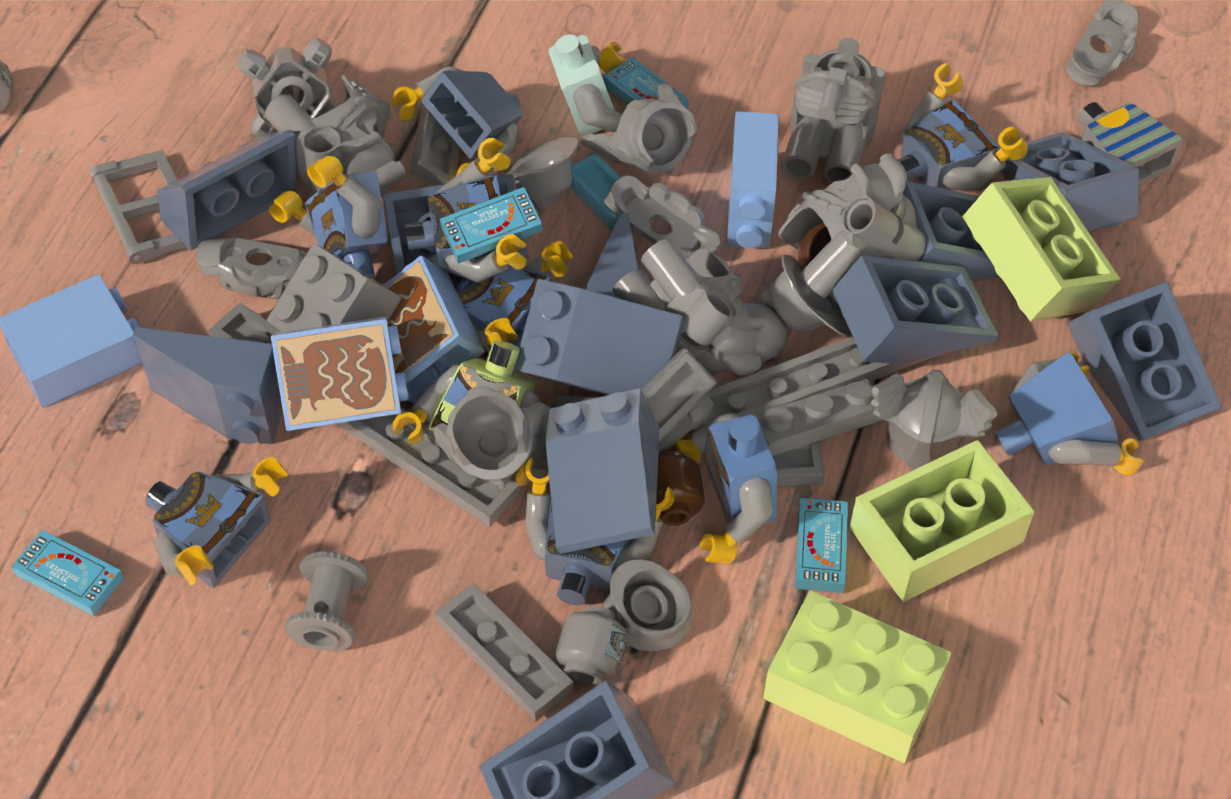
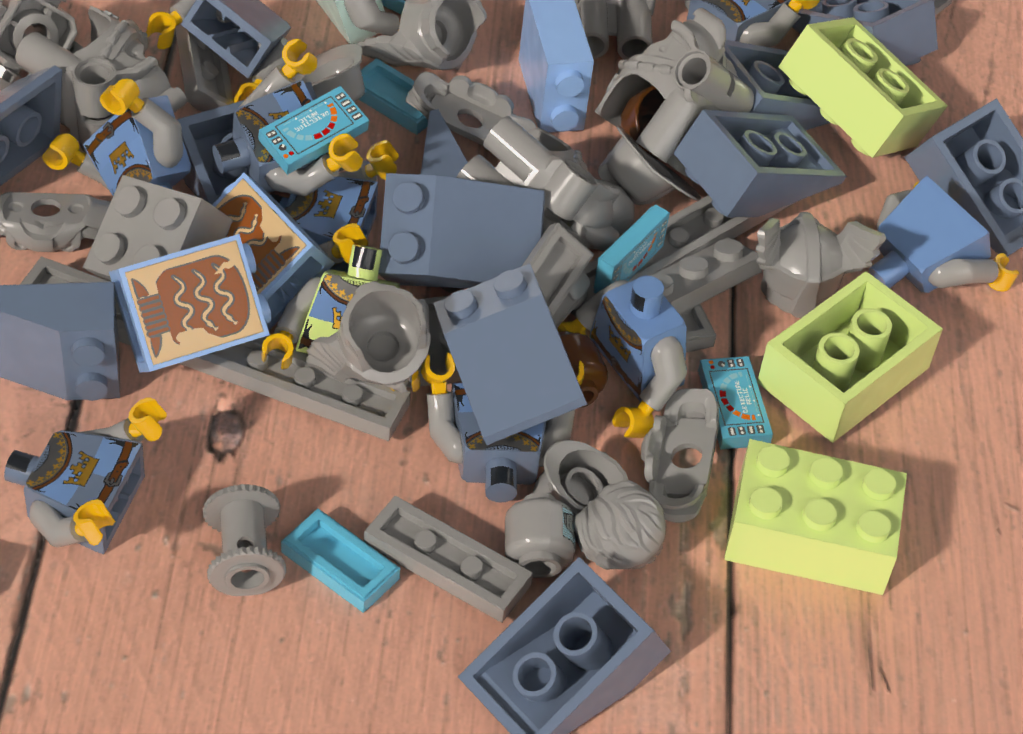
camera: 20 degrees left, 5 degrees down
(411, 633) = (340, 560): none -> medium azure tile
(667, 654) = (621, 527): none -> light grey hair
(761, 381) = (633, 248): none -> medium azure tile
(768, 560) = (687, 422): none -> light grey piece

